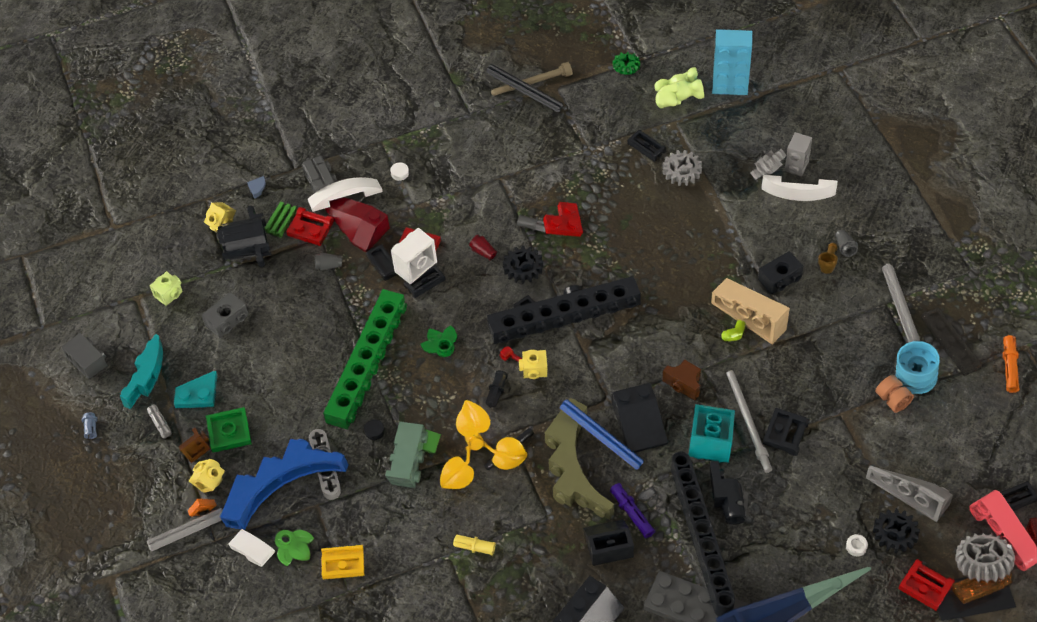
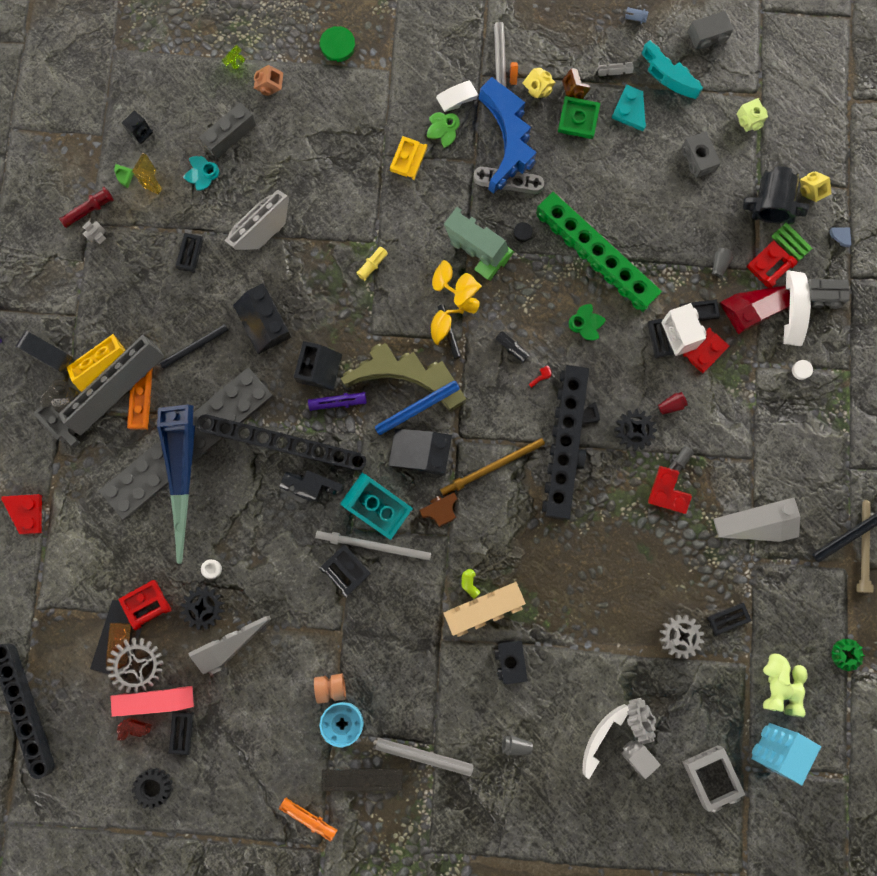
camera: 110 degrees right, 25 degrees up
(533, 364) = (519, 393): light yellow brick -> none
(551, 151) = (768, 522): none -> light grey wedge
(649, 377) = (459, 483): none -> pearl gold bar
(770, 119) = (703, 759): none -> light grey window
(828, 260) = (506, 718): pearl gold bar -> none

